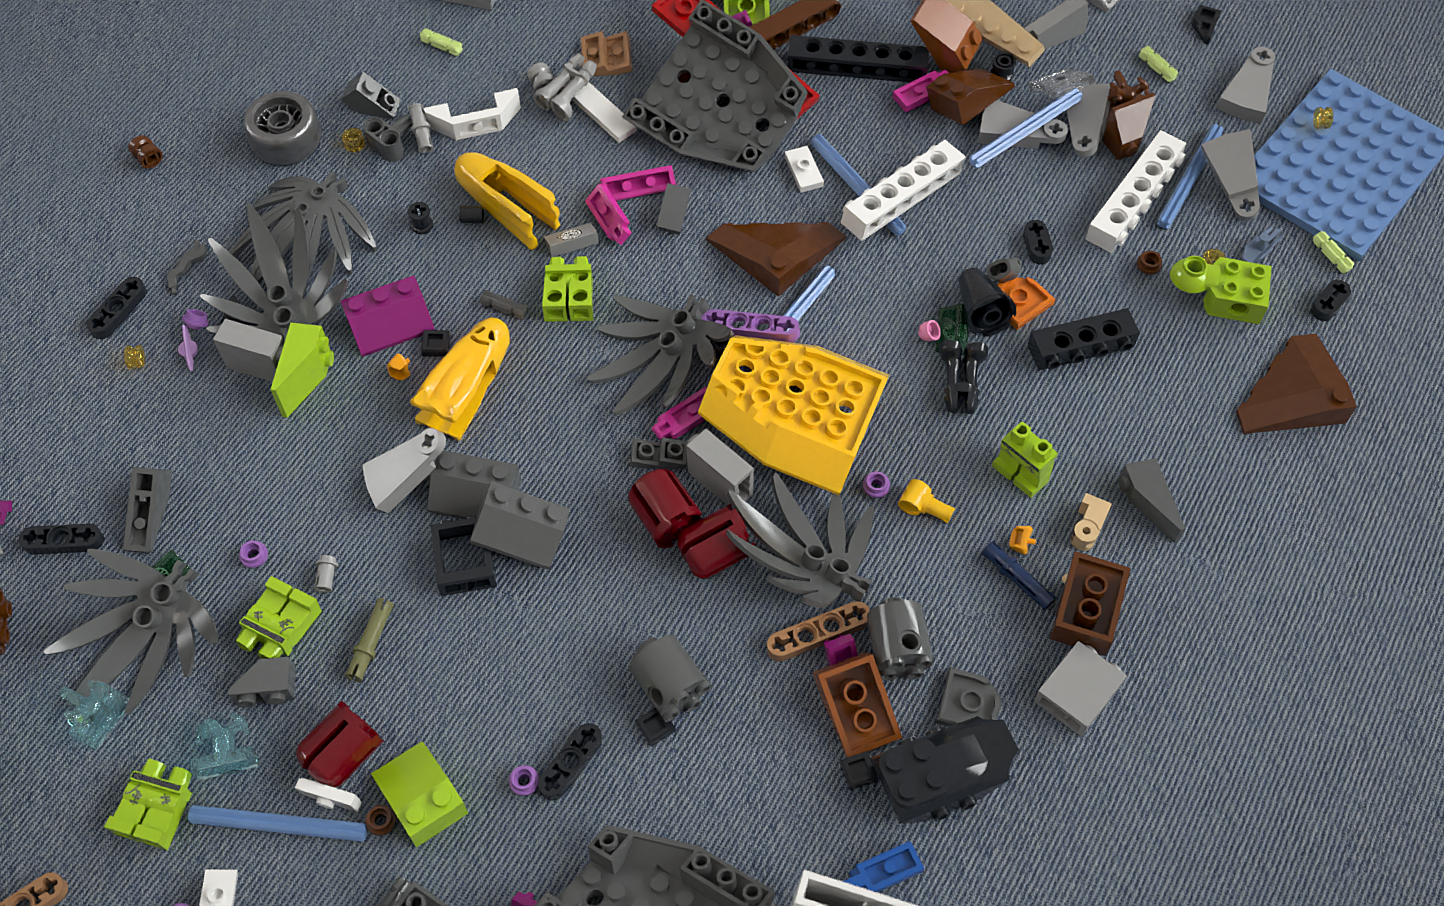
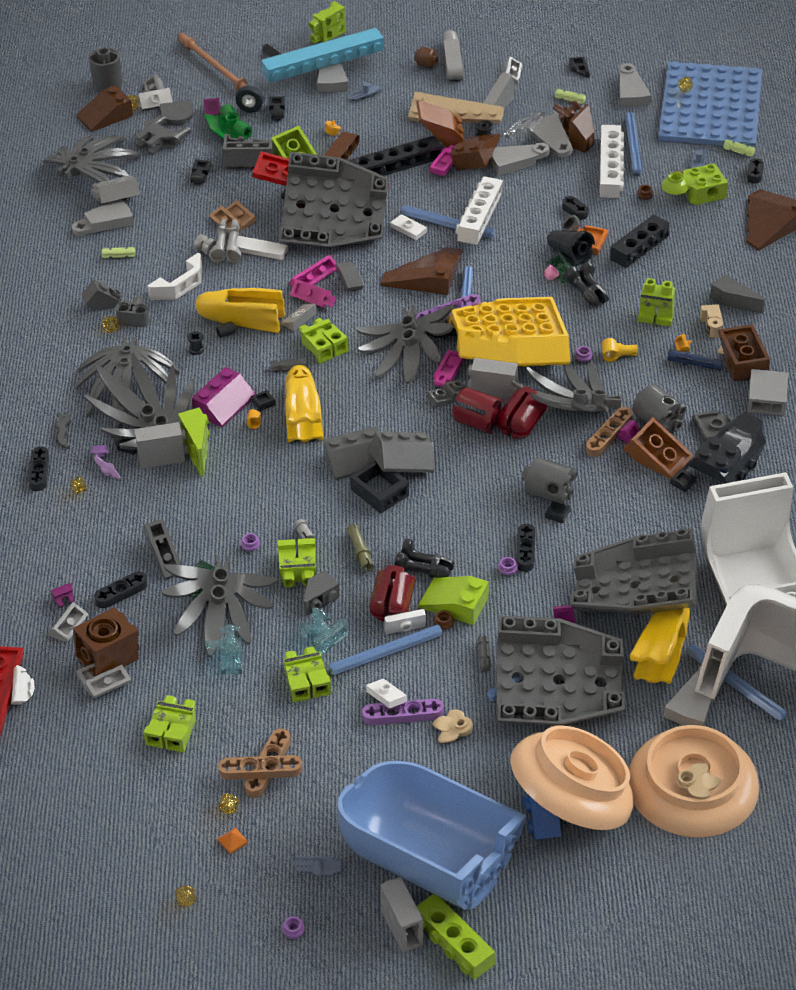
camera: 30 degrees left, 15 degrees down
(282, 127) = (62, 332): flat silver wheel -> none
(398, 697) = (410, 558): none -> black piece
(402, 468) = (308, 458): light grey piece -> none
(420, 128) = (151, 298): light grey pin -> none
(1025, 128) = (524, 153): axle -> none
(1235, 169) = (657, 127): light grey piece -> none

